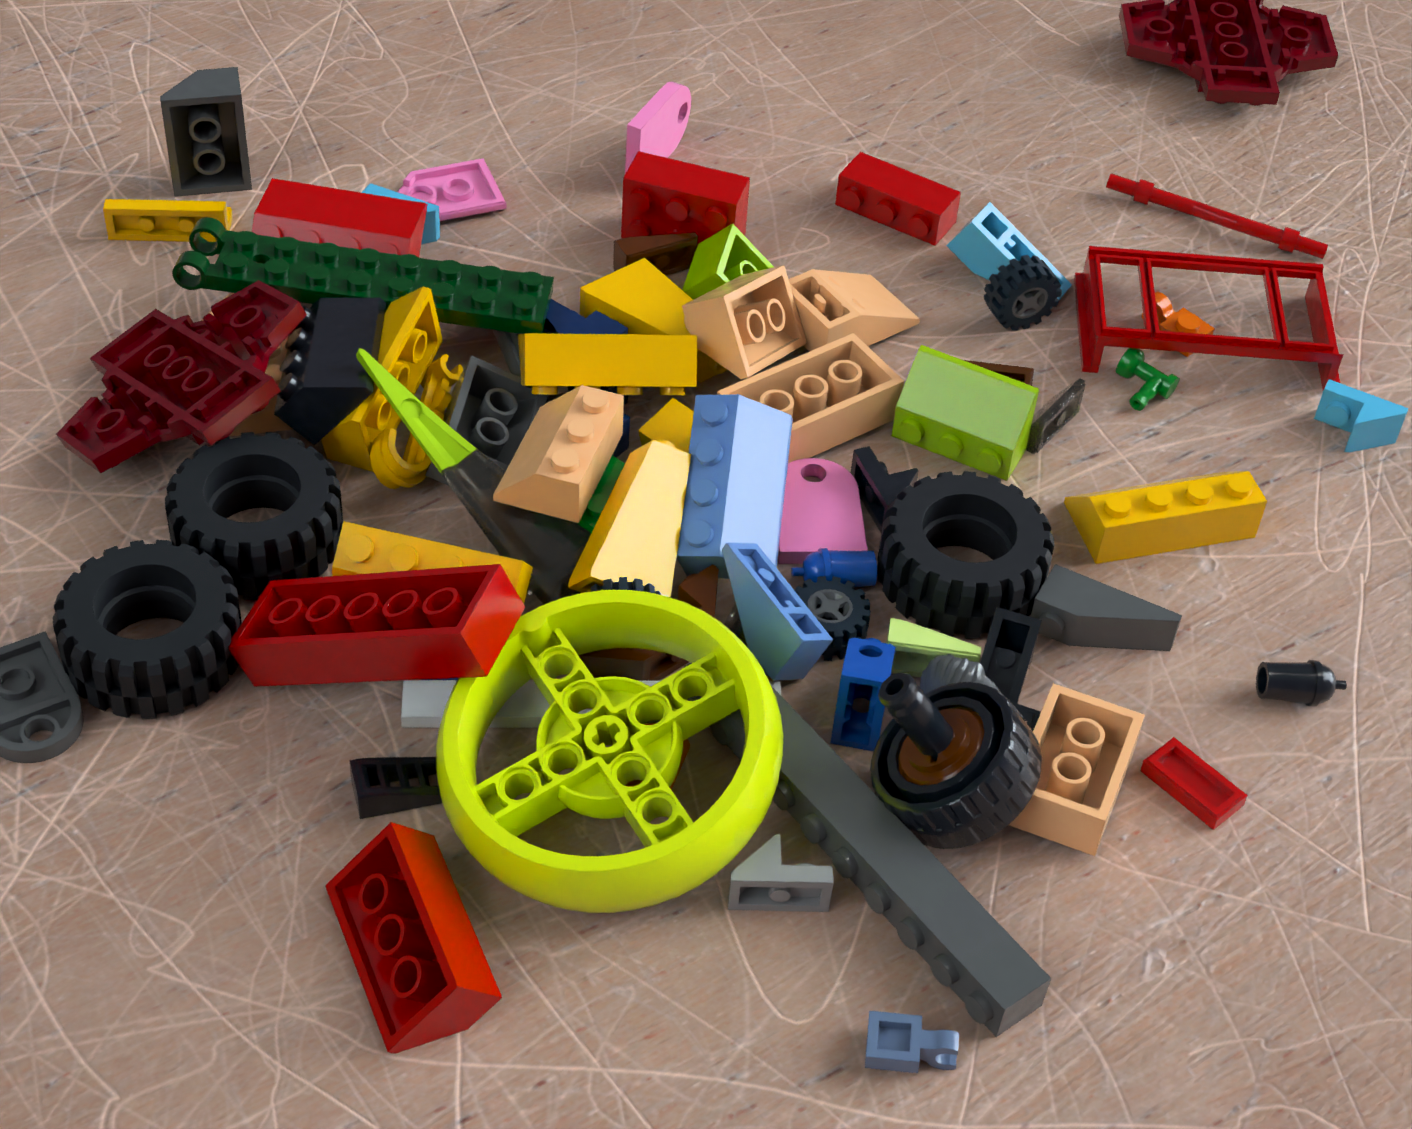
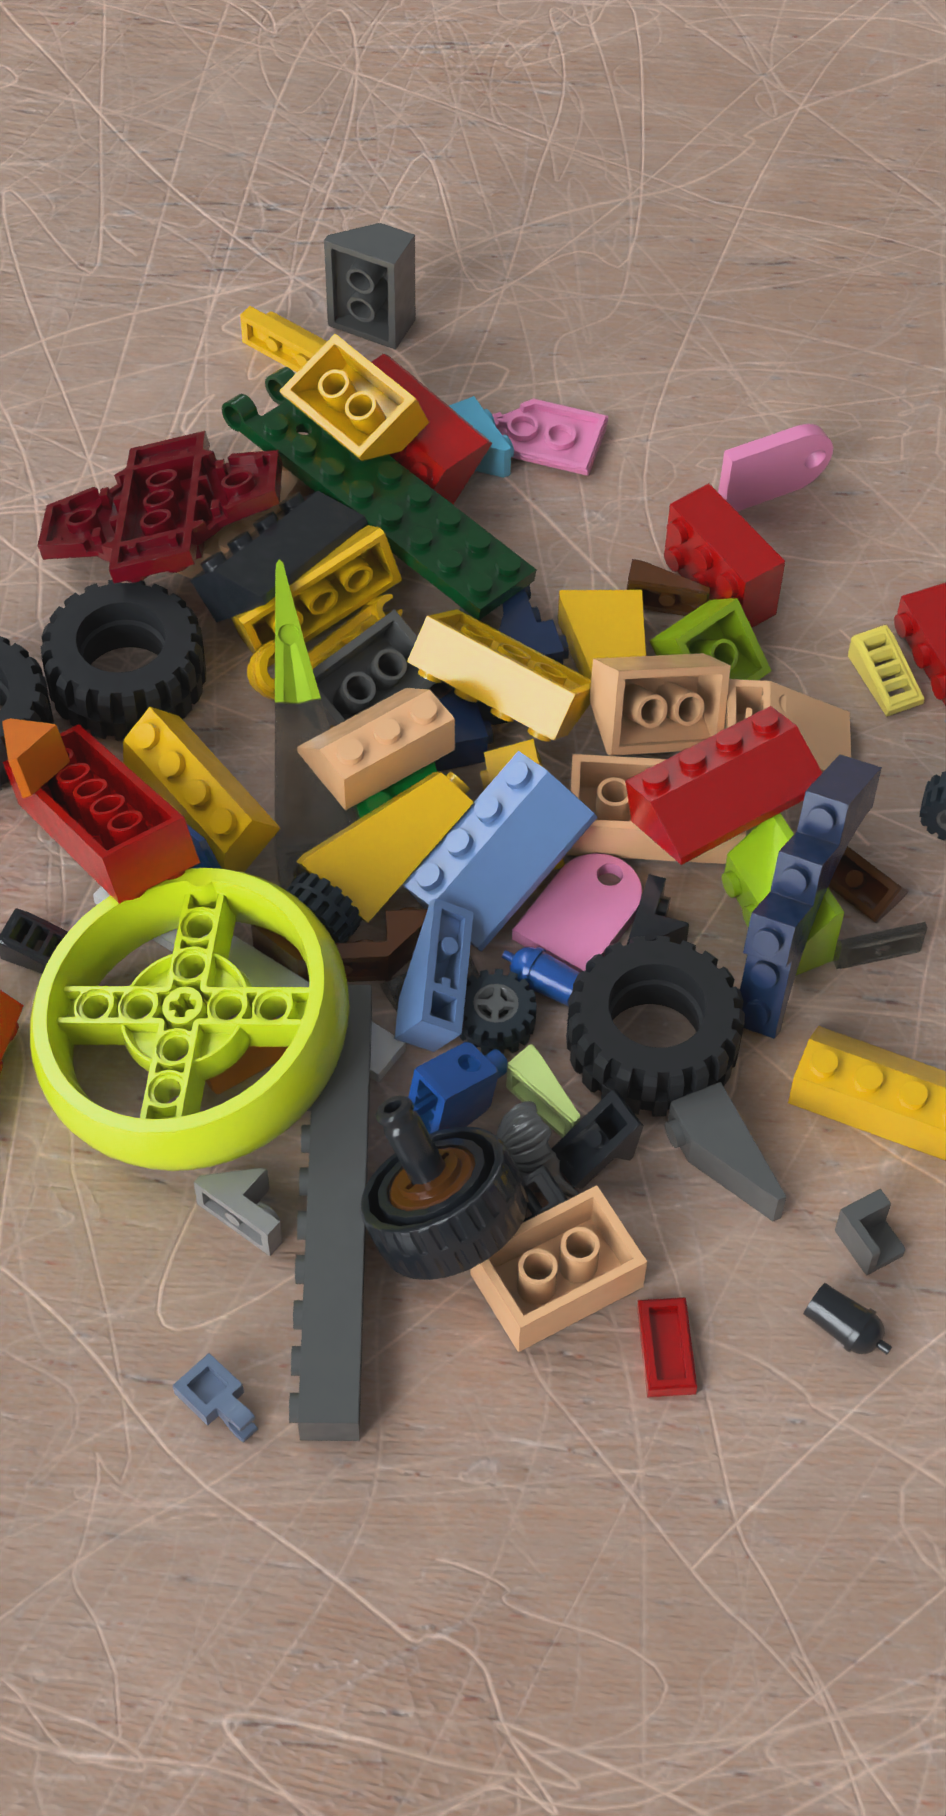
camera: 40 degrees right, 10 degrees up
(267, 611) = (33, 753): none -> orange slope
(297, 208) = (355, 401): none -> yellow slope
(855, 231) = (879, 646): none -> light yellow slope
(868, 346) = (723, 785): none -> red slope
(993, 363) = (802, 874): none -> dark blue arch
(1245, 619) = (867, 1234): none -> dark grey panel

